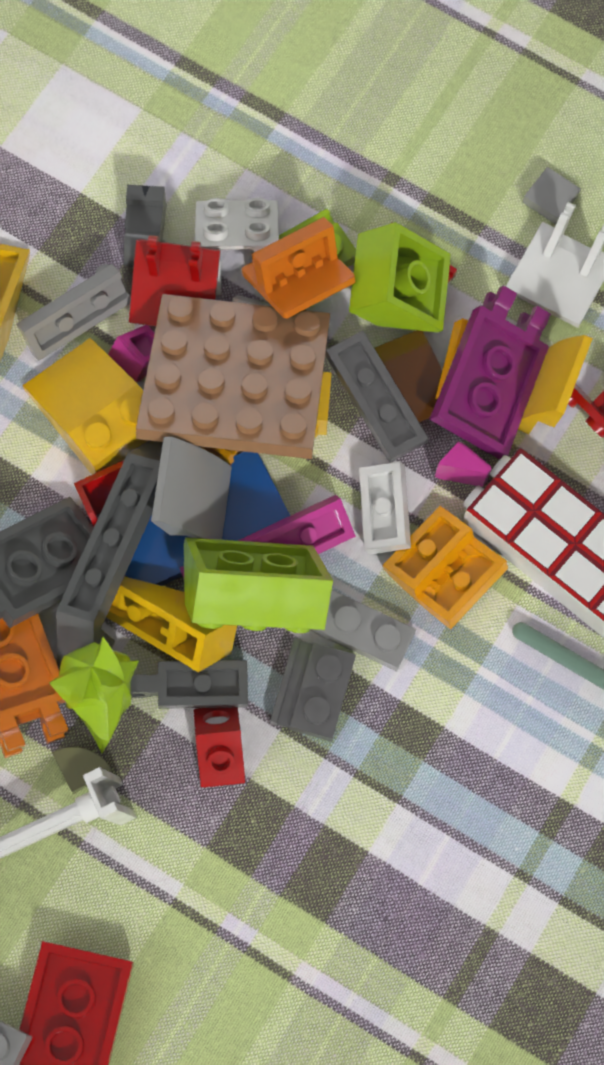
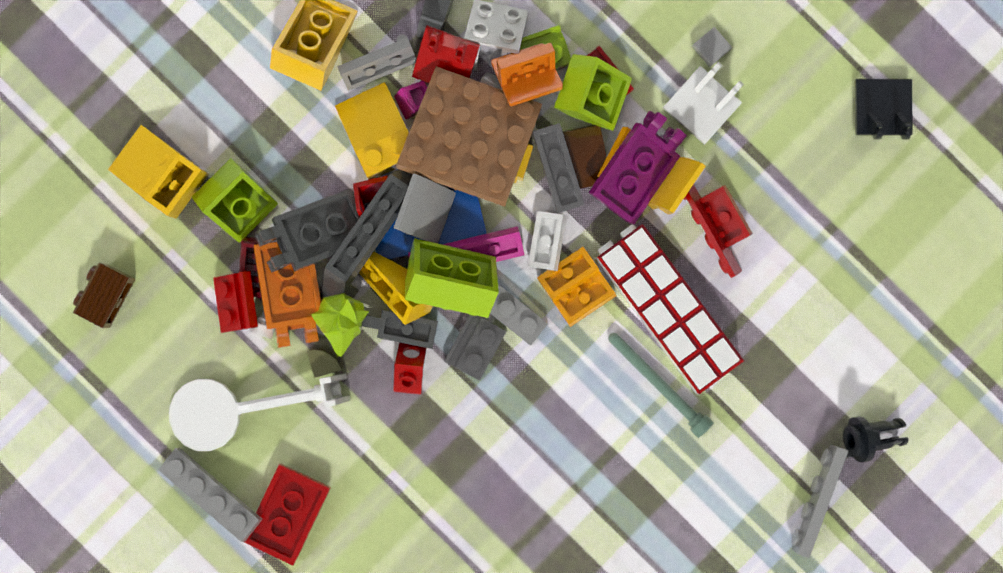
camera: 20 degrees right, 15 degrees up
(463, 466) = (604, 224): dark pink slope -> none

